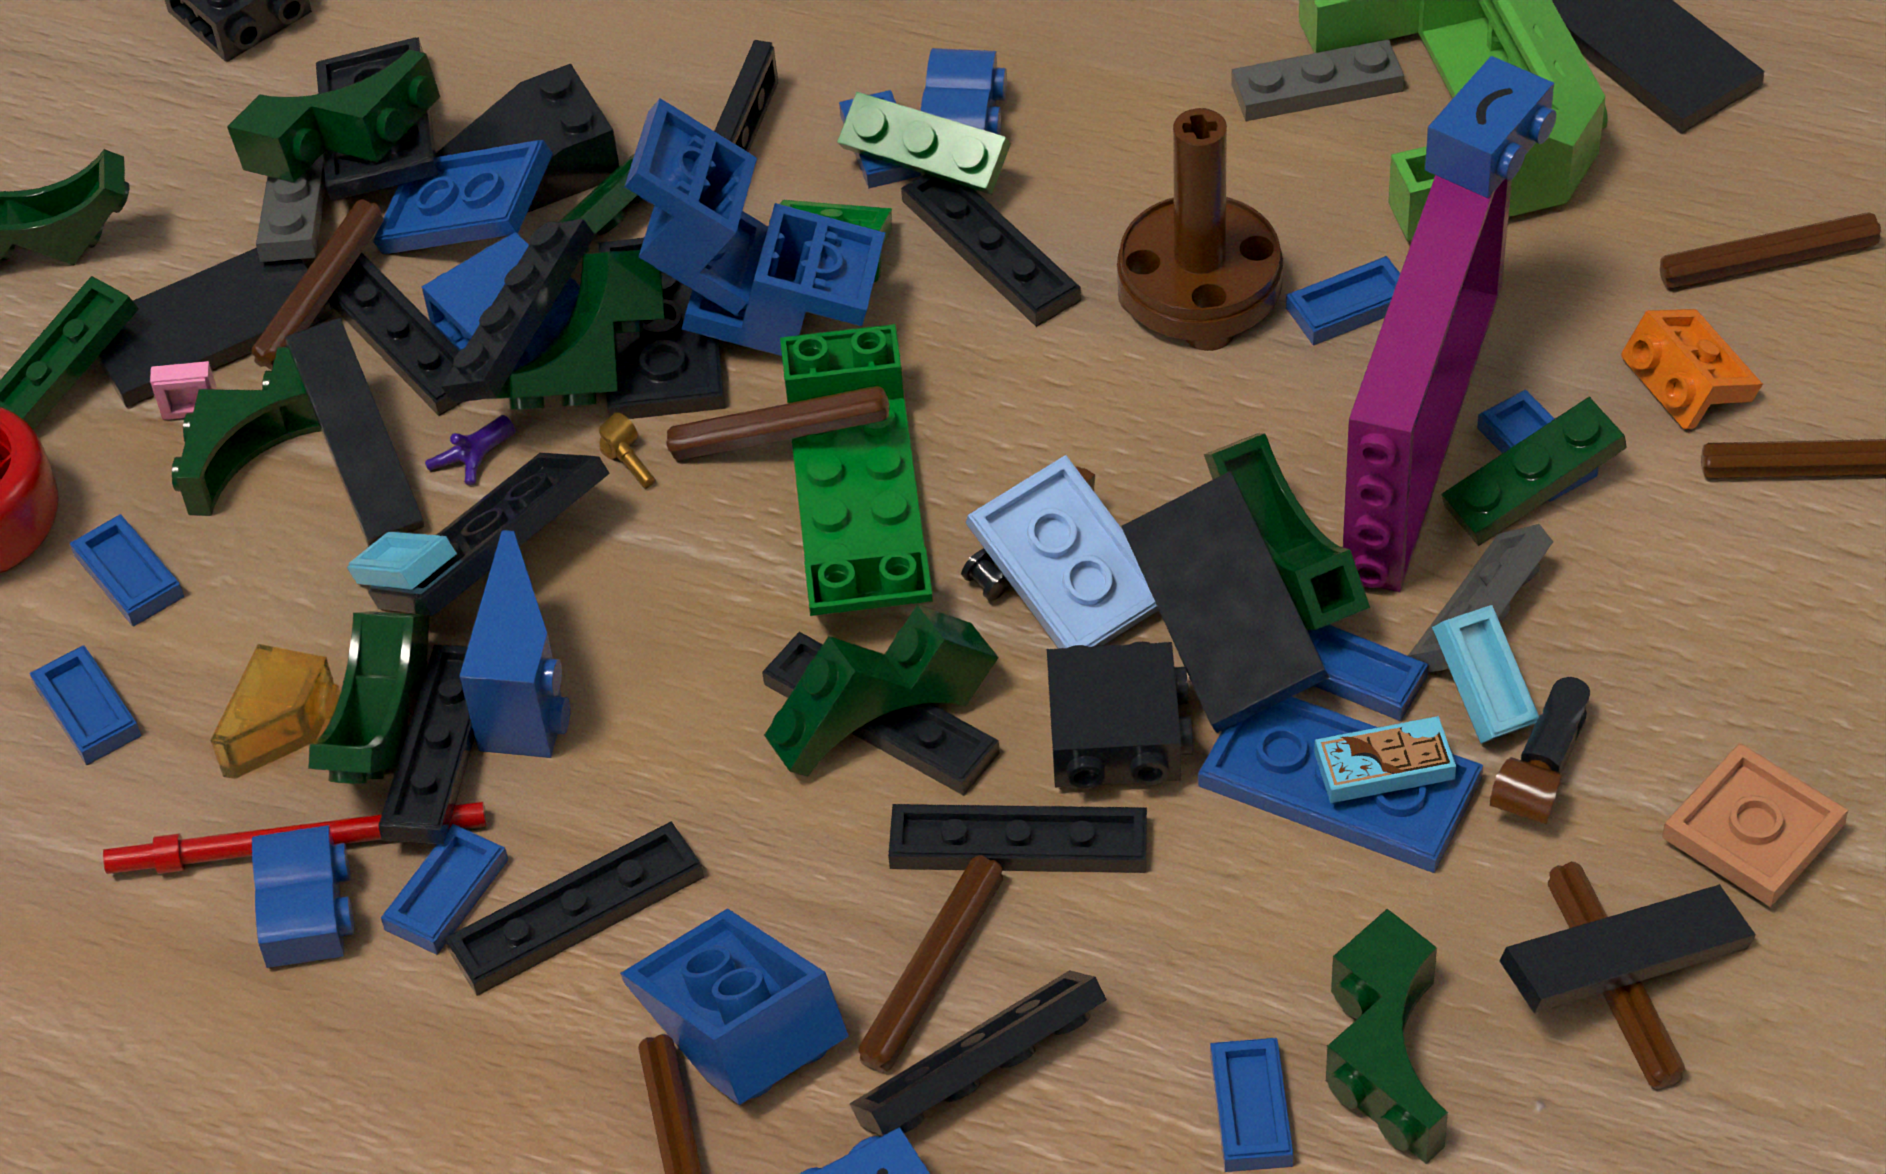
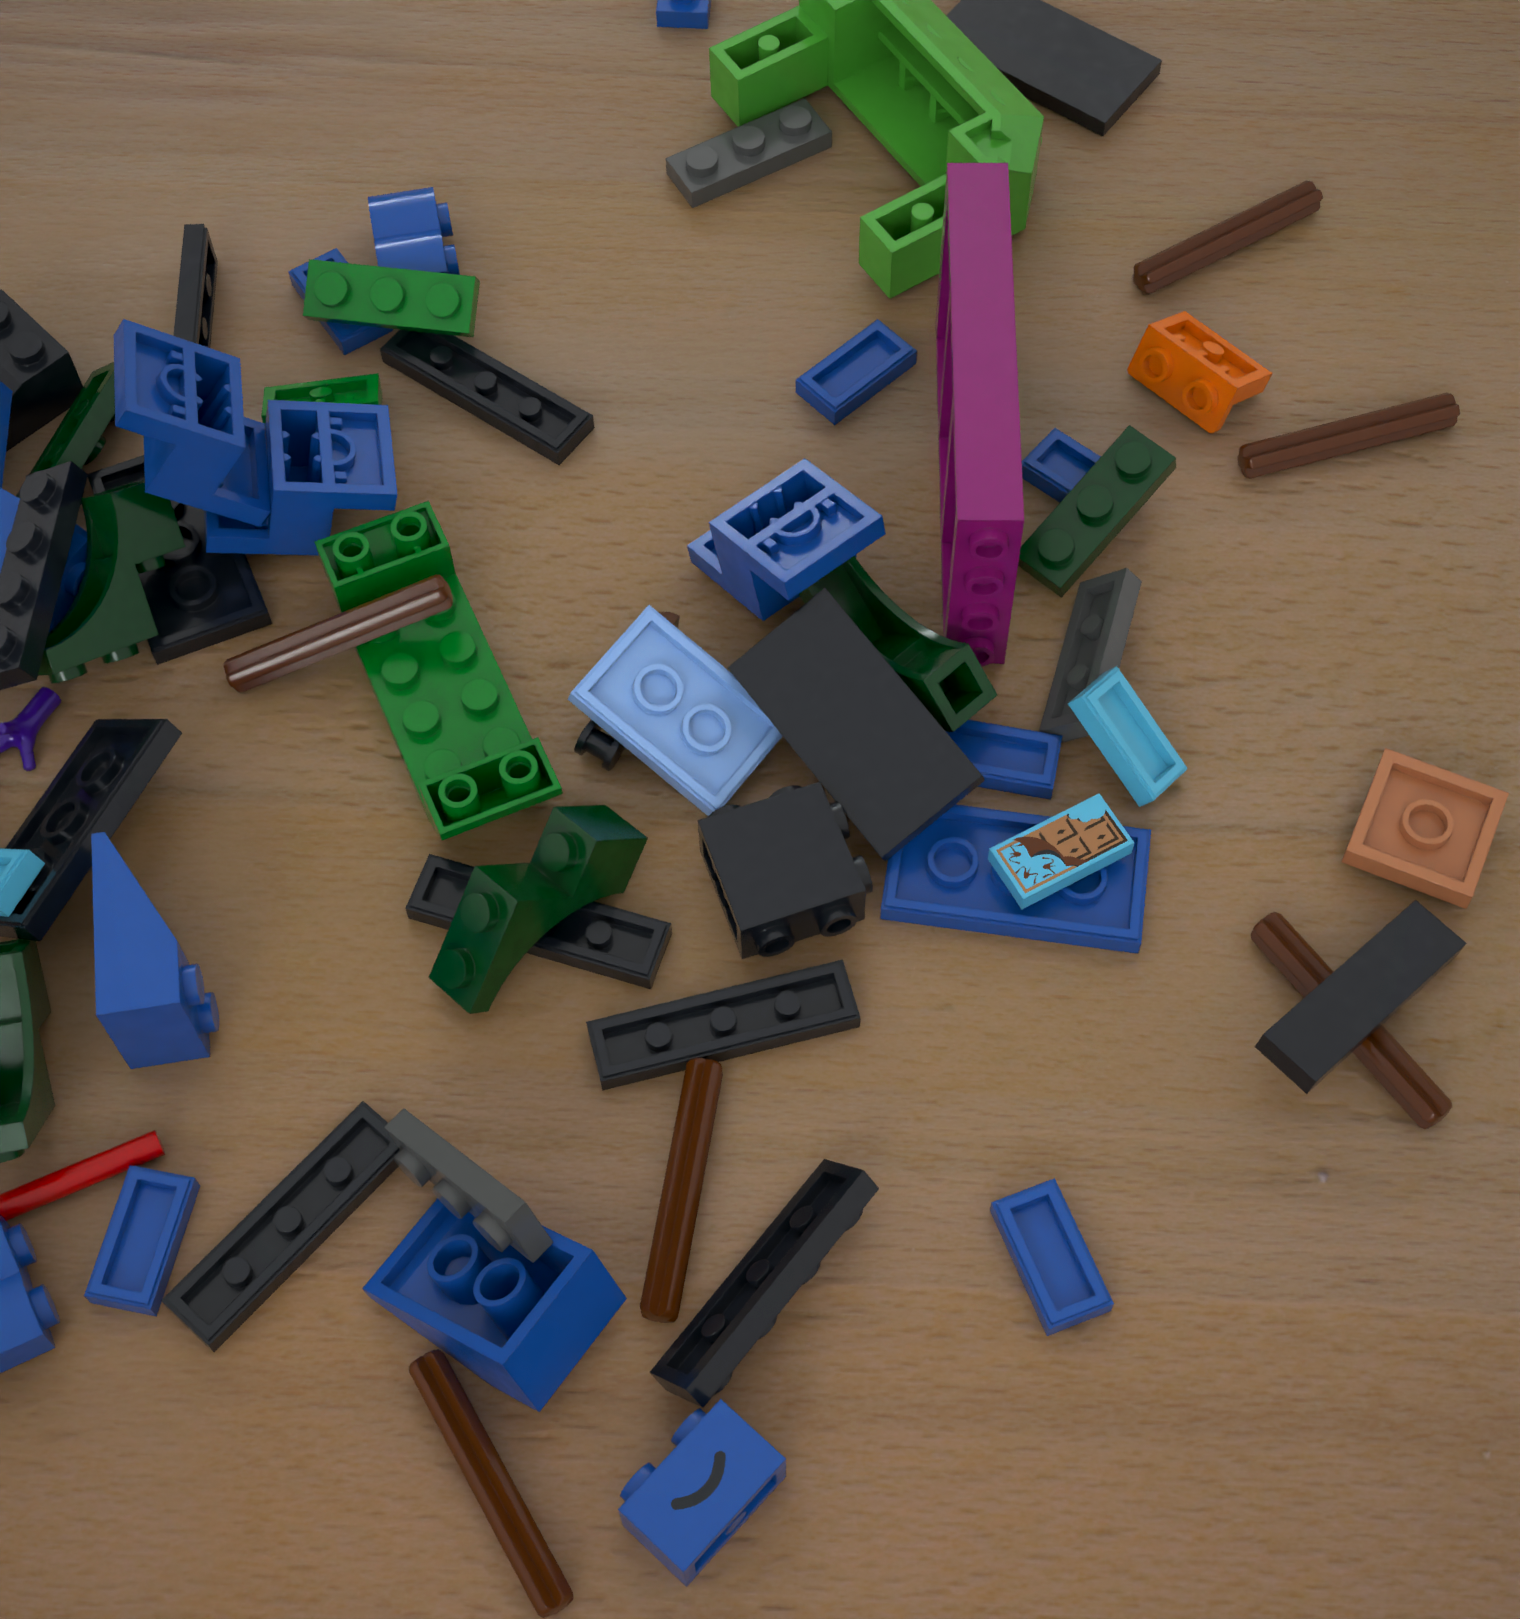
camera: 20 degrees left, 10 degrees up
(431, 756) = (84, 1091): black tile -> none
(616, 437) = (170, 689): pearl gold hand -> none
(734, 901) = (466, 1188): none -> dark grey plate
(1200, 259) = (705, 362): reddish brown piece -> none
(1211, 420) = (785, 538): none -> blue bracket
(1367, 1065) = (1162, 1183): dark green arch -> none
(1490, 127) = (994, 177): blue brick -> none
(1530, 784) = (1206, 840): piece -> none

